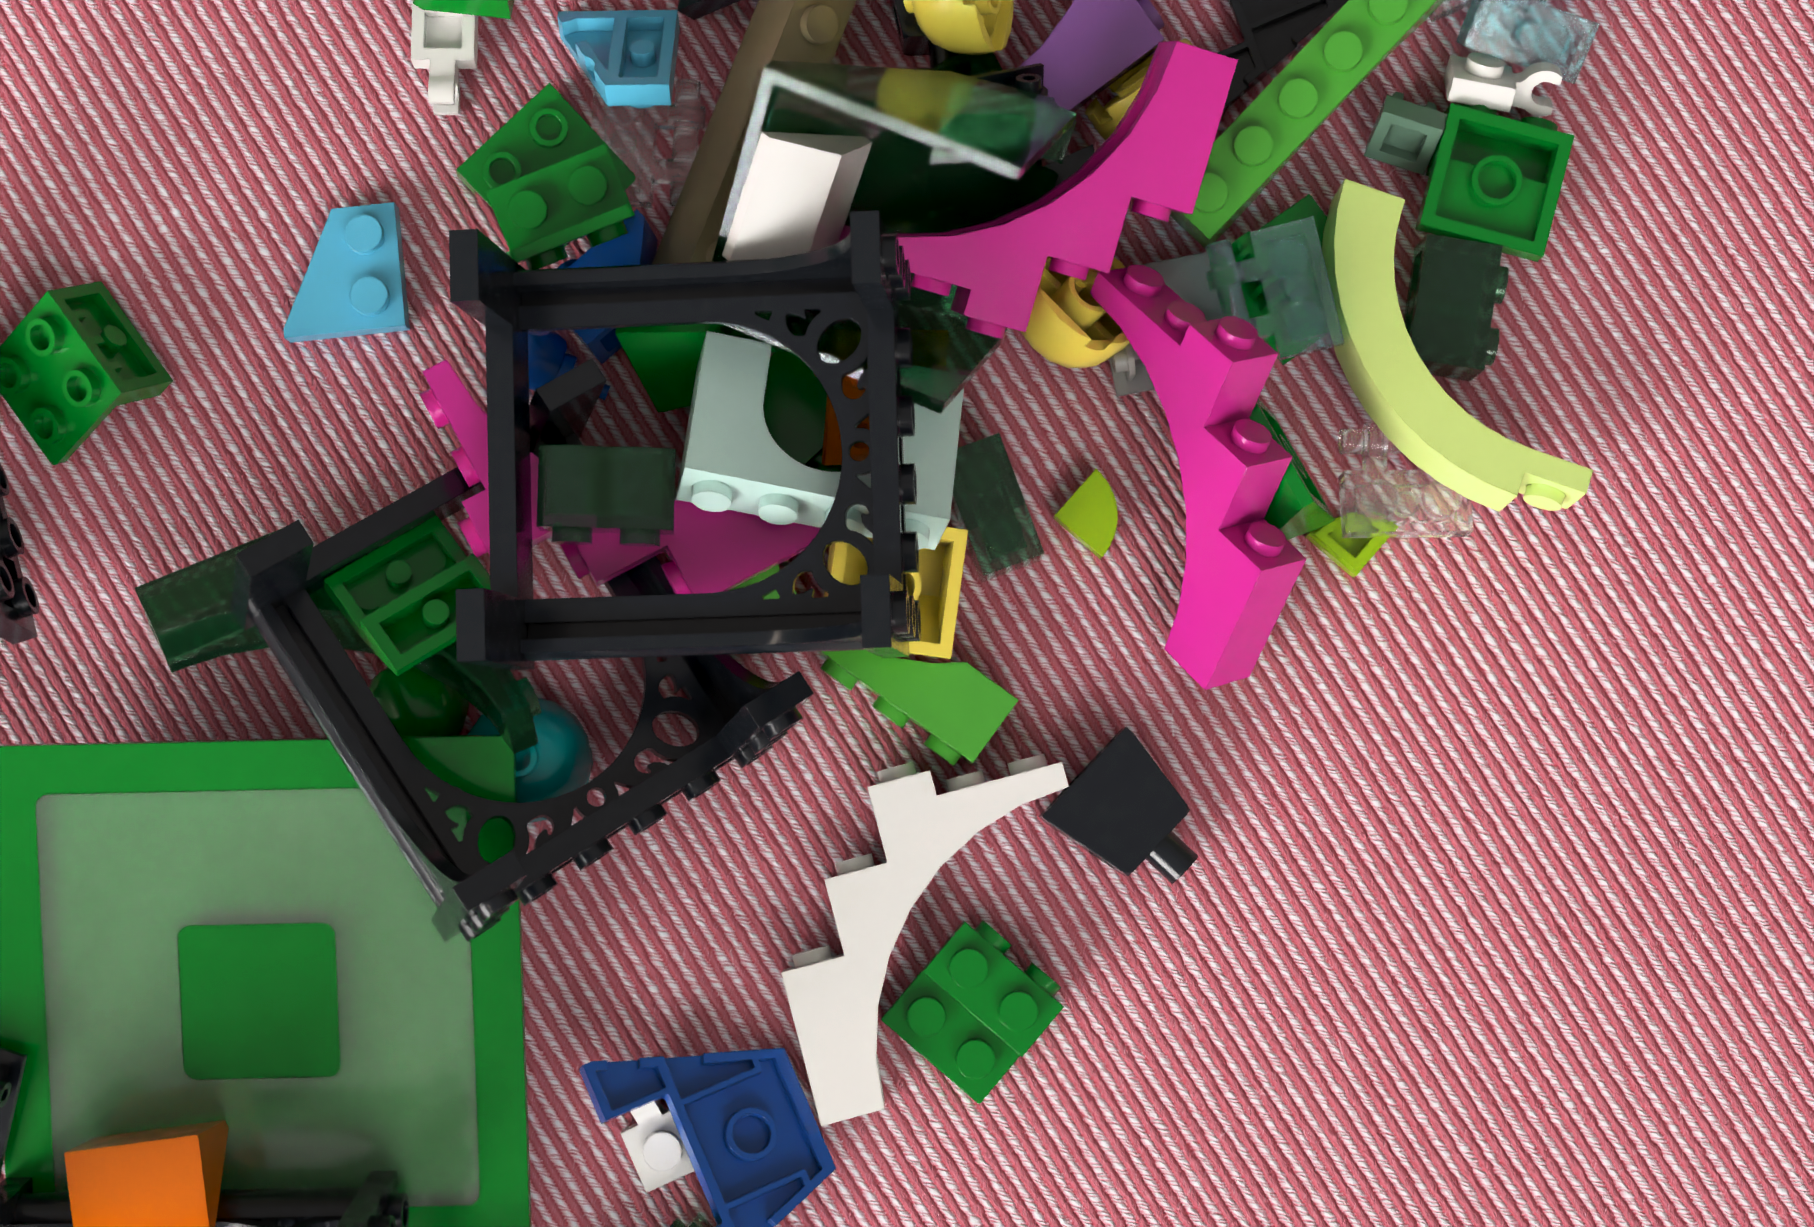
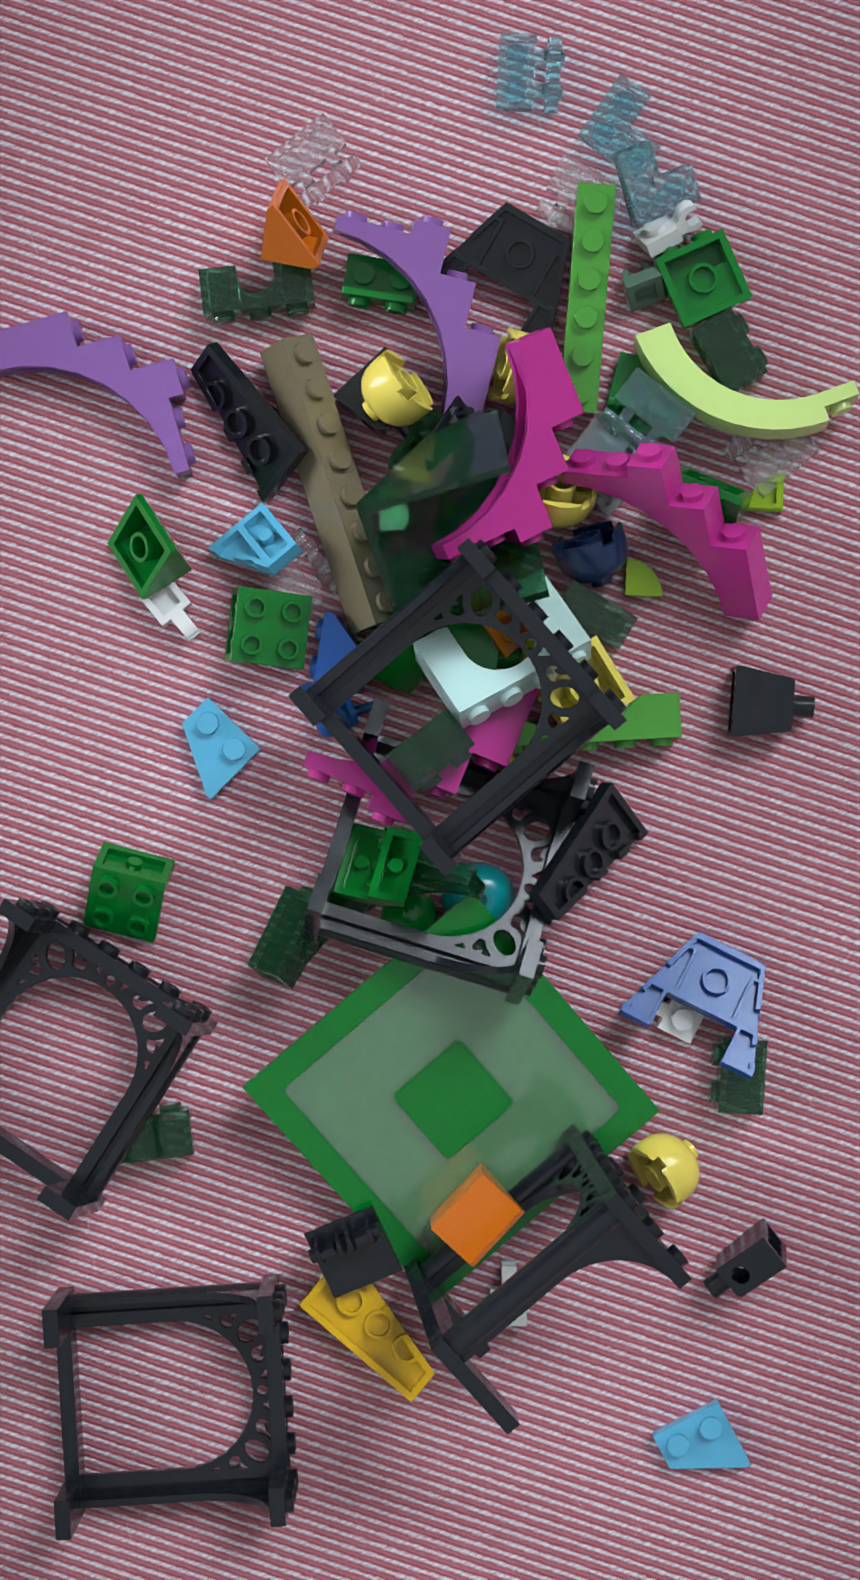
camera: 40 degrees left, 5 degrees up
(561, 206) = (298, 640): green bracket -> none
(713, 810) = (587, 851): none -> black wing
(796, 194) = (408, 553): white slope -> none
(839, 995) = (682, 787): white arch -> none
(974, 1009) = (768, 845): green plate -> none
(1054, 424) = (593, 553): none -> dark blue cylinder

